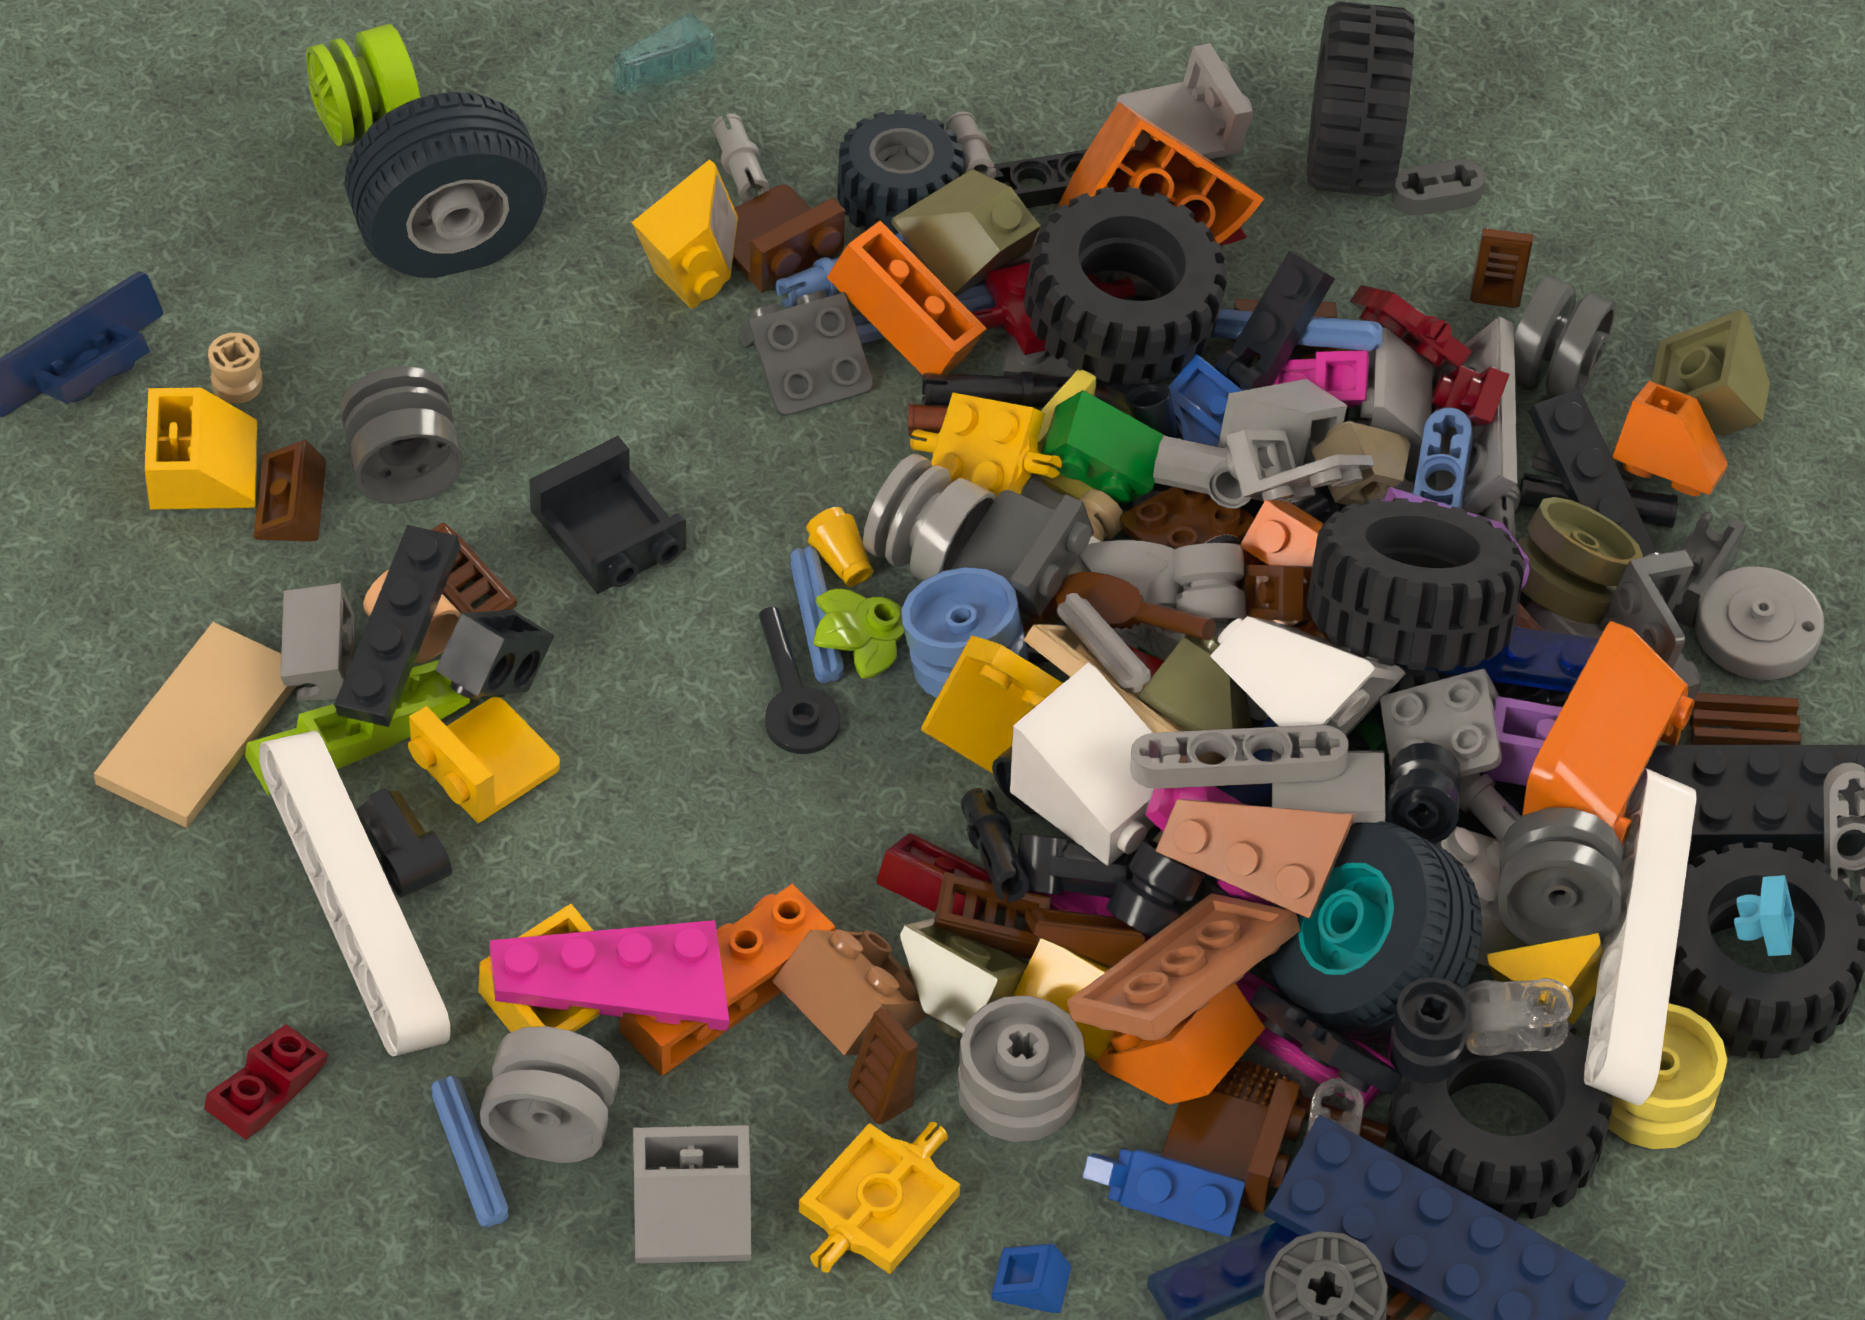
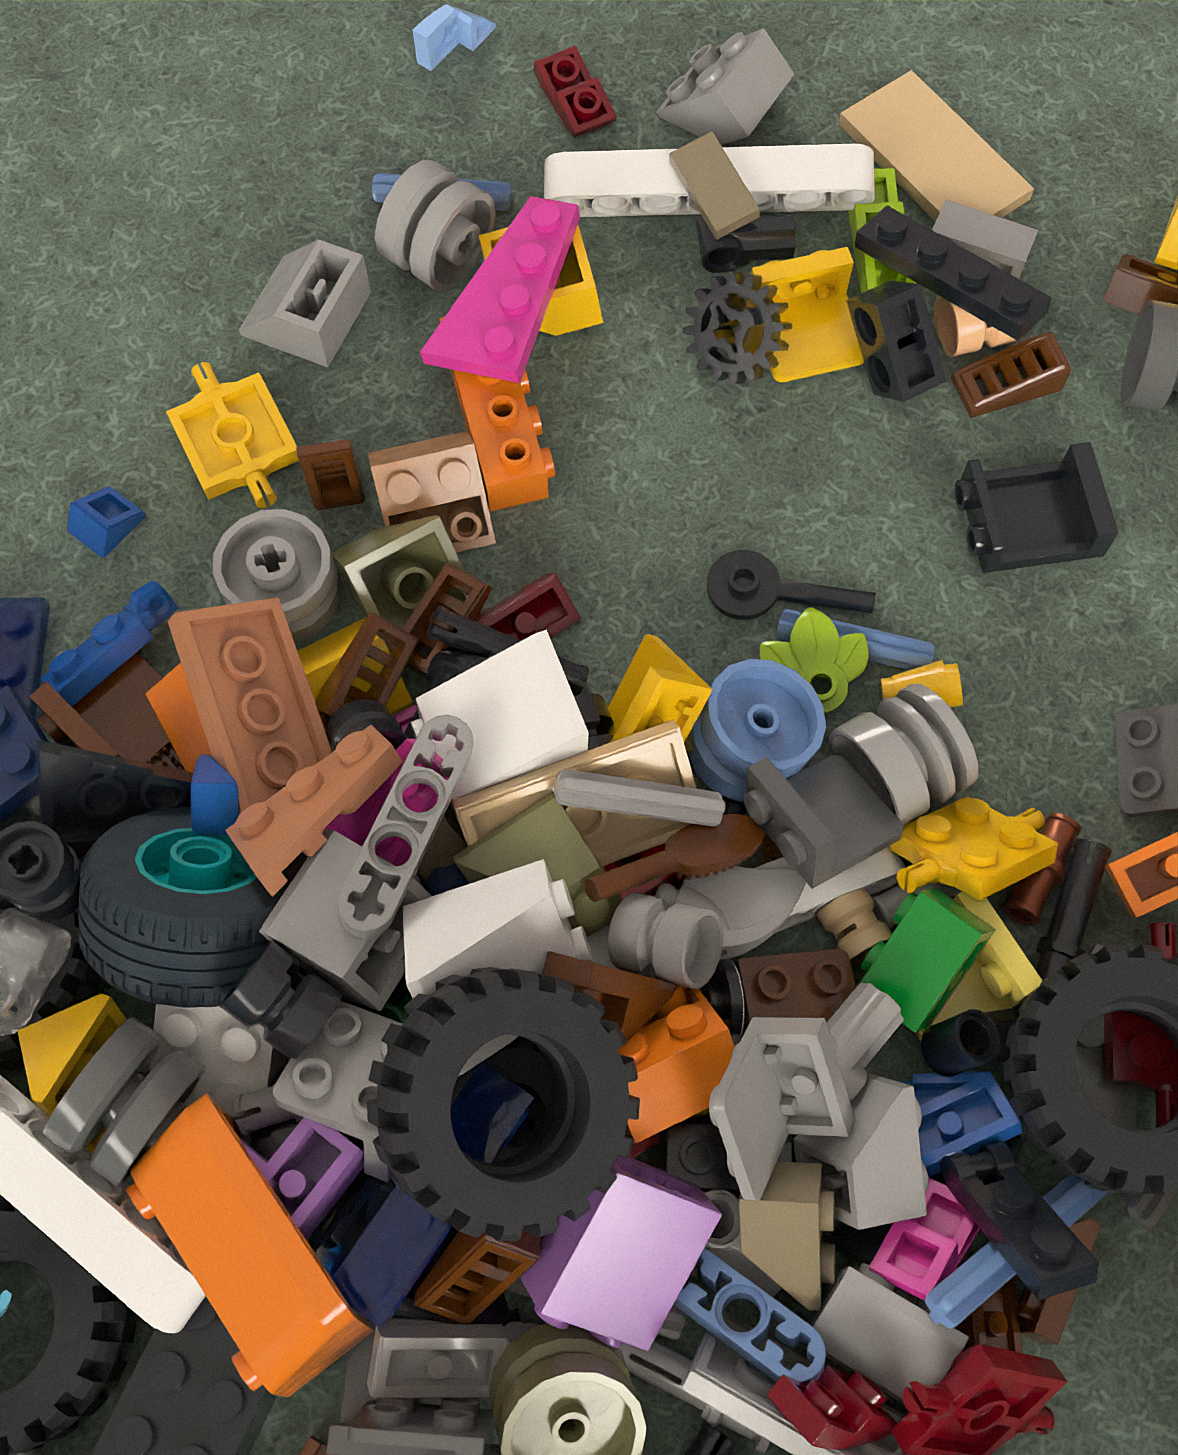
camera: 120 degrees right, 15 degrees up
(206, 930) = (728, 87): none -> light grey slope
(242, 1233) = (445, 30): none -> light blue slope
(381, 857) = (714, 185): none -> dark tan tile
(539, 792) = (721, 312): none -> black gear
(1281, 957) = (213, 798): none -> blue slope

